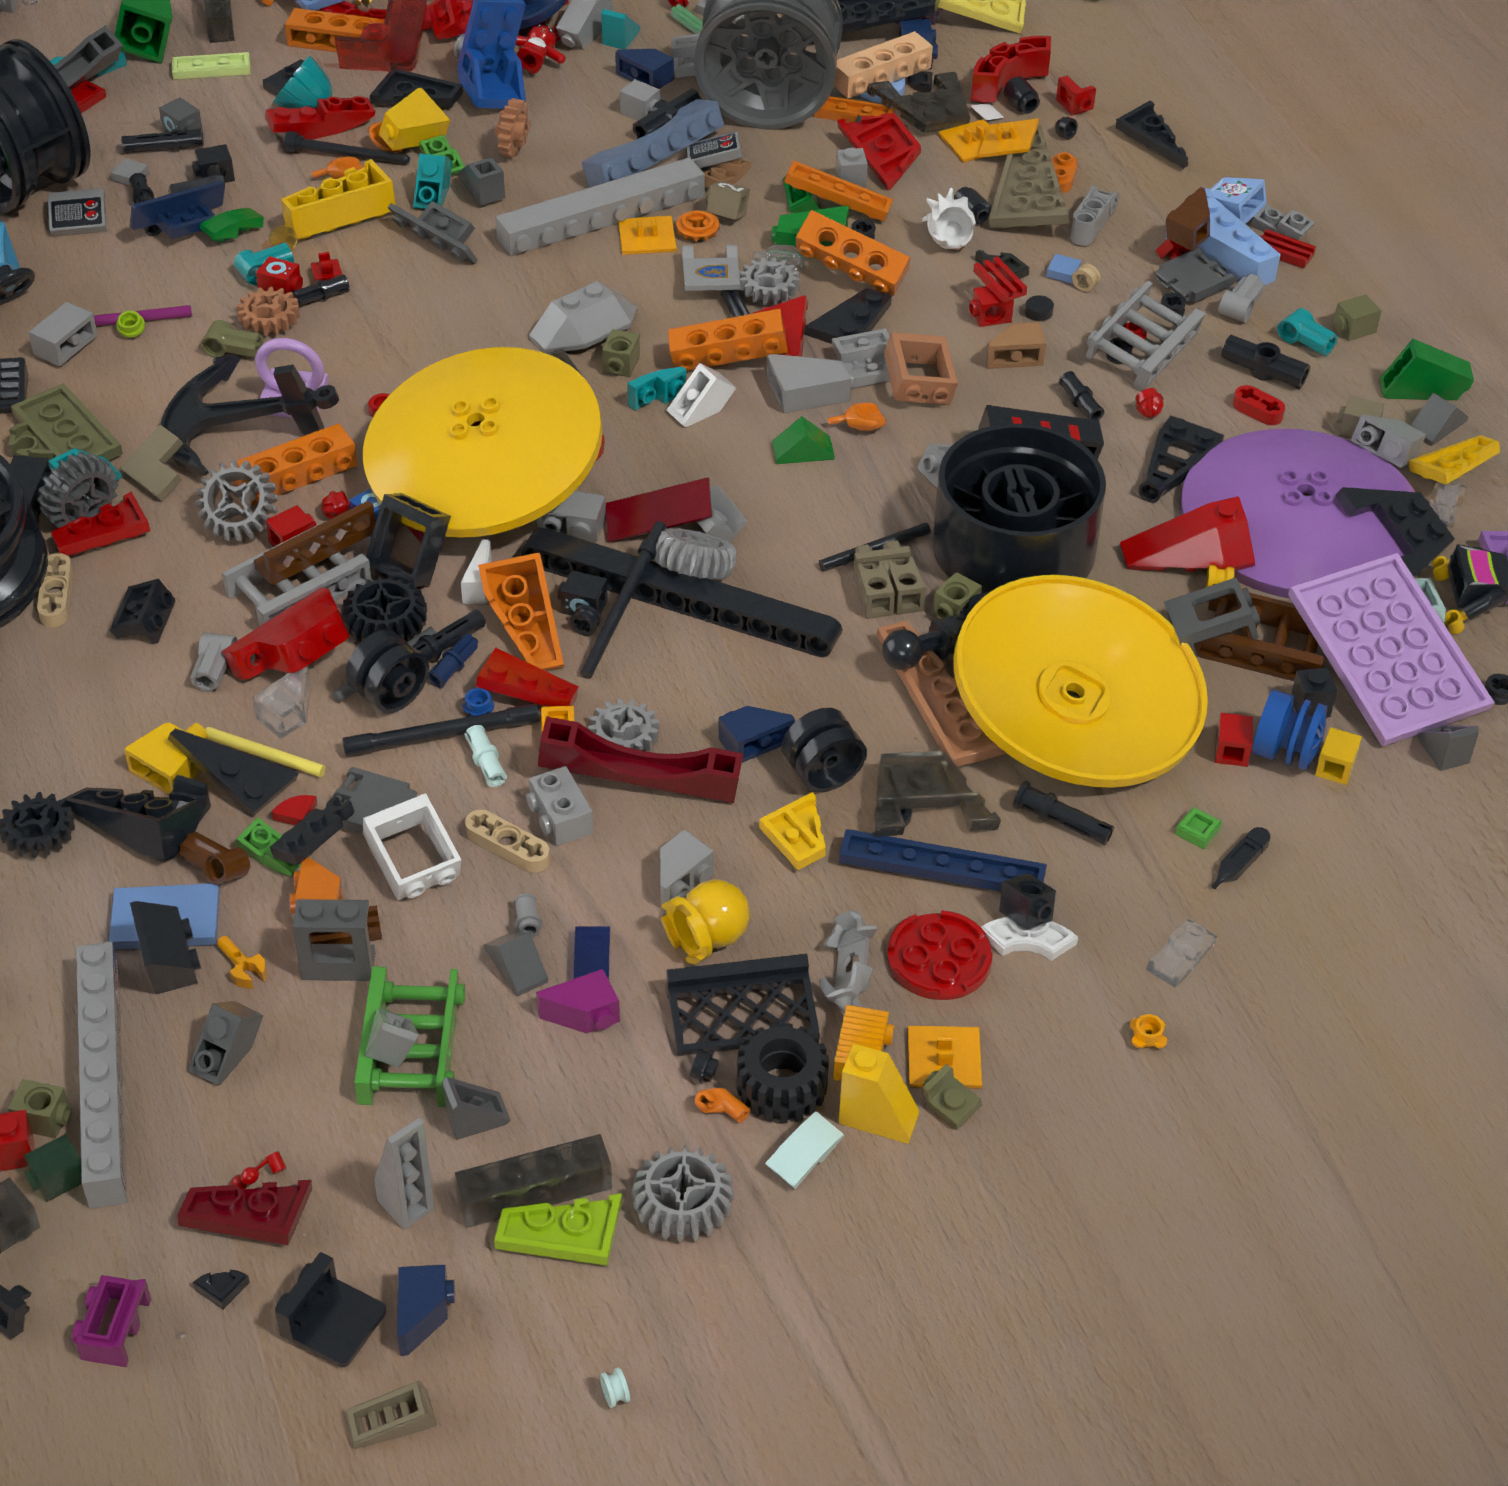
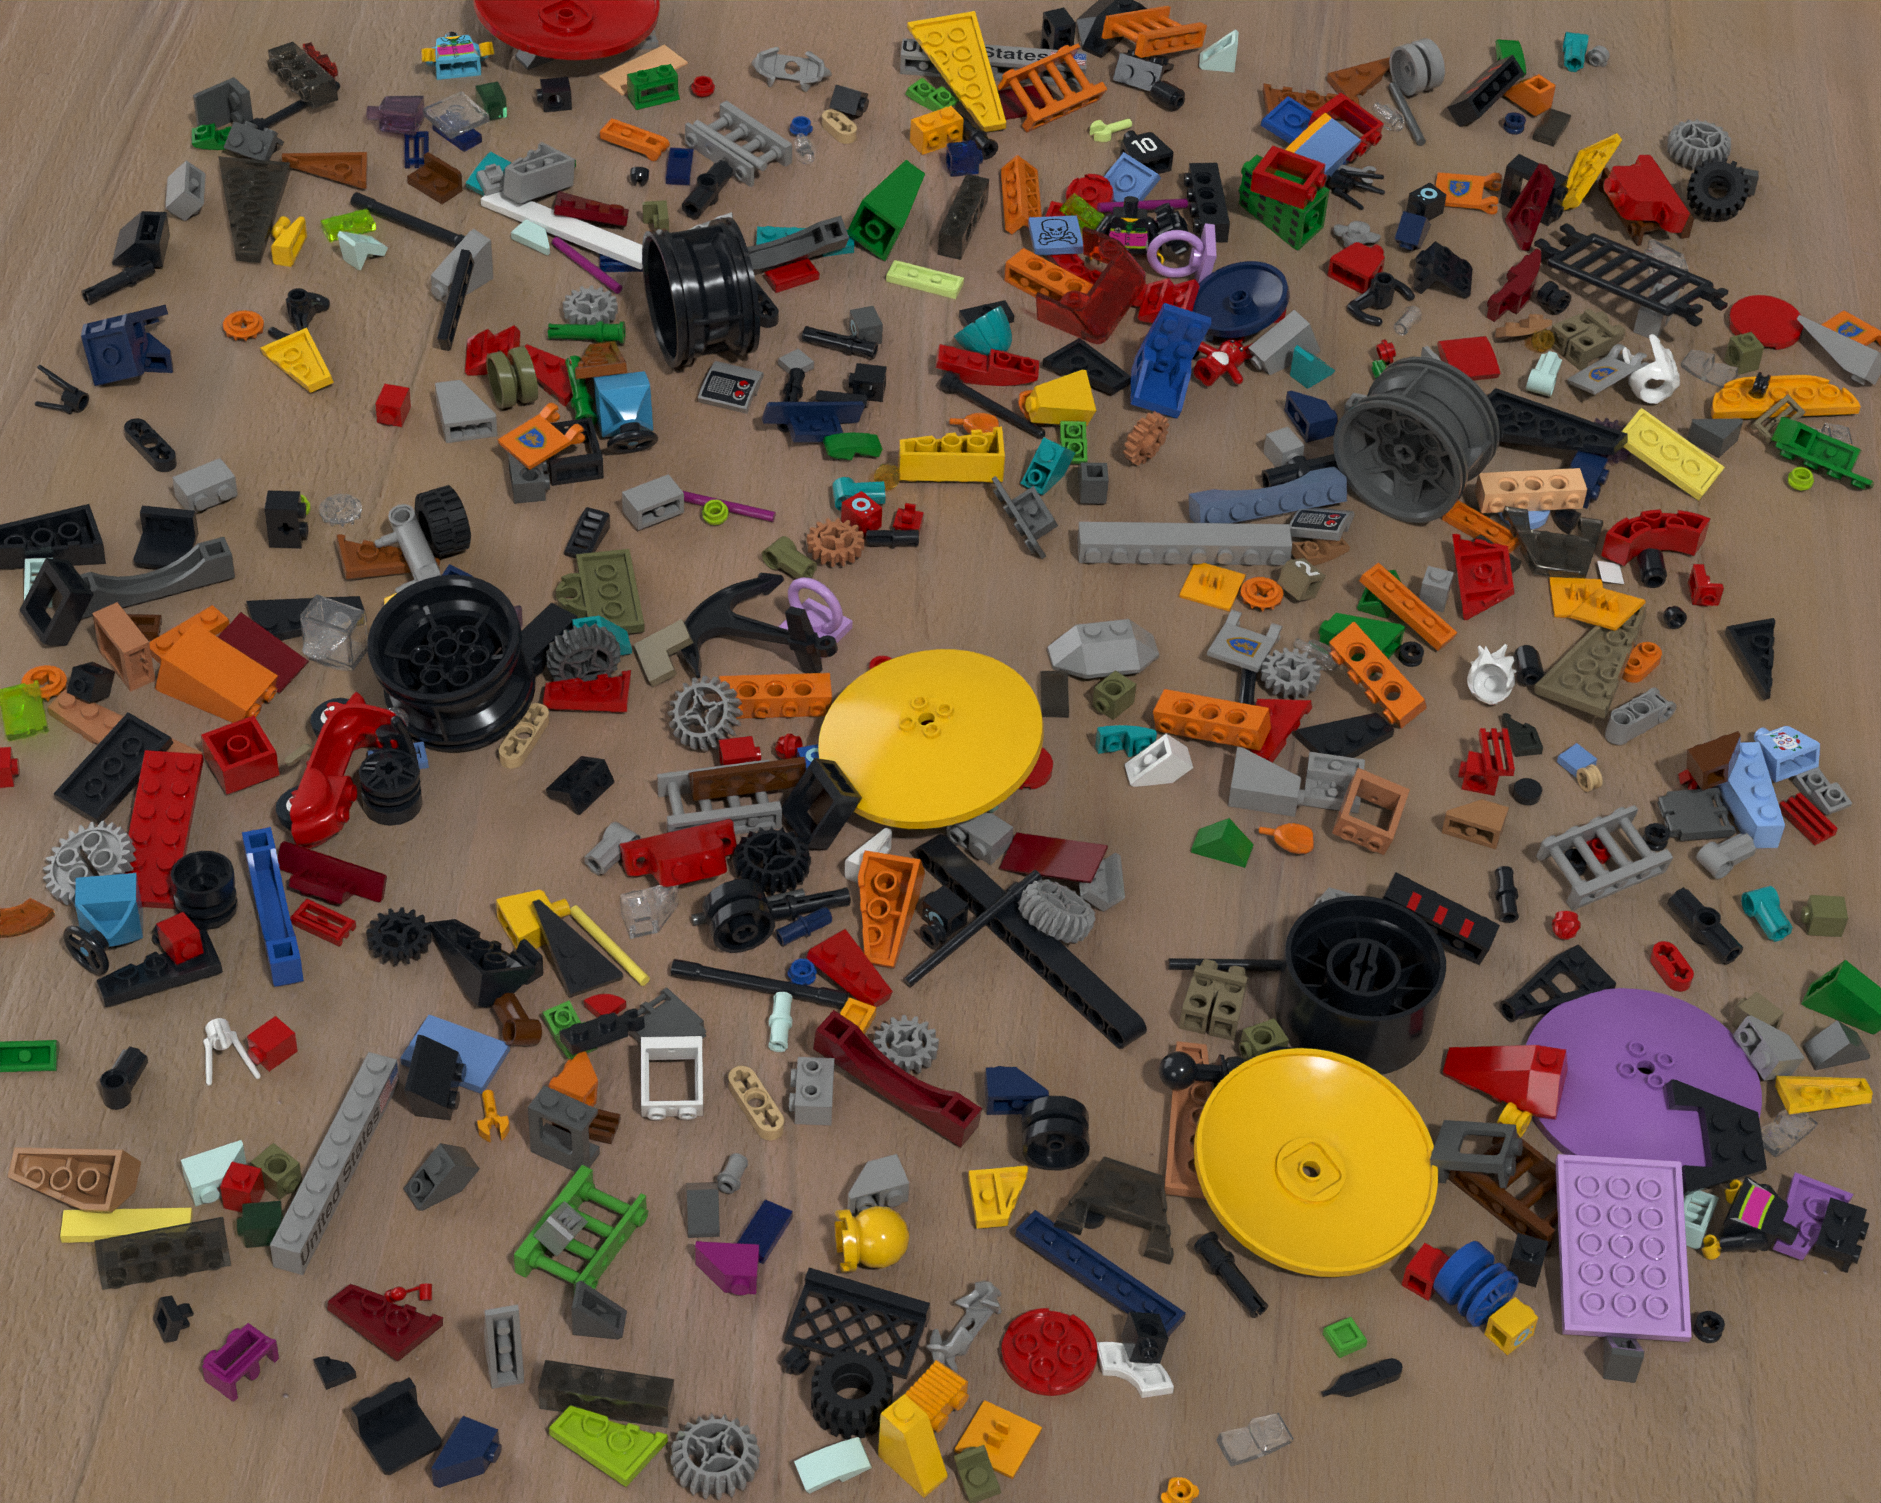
camera: 25 degrees right, 0 degrees up
(719, 1101) = (792, 1395): orange arm -> none

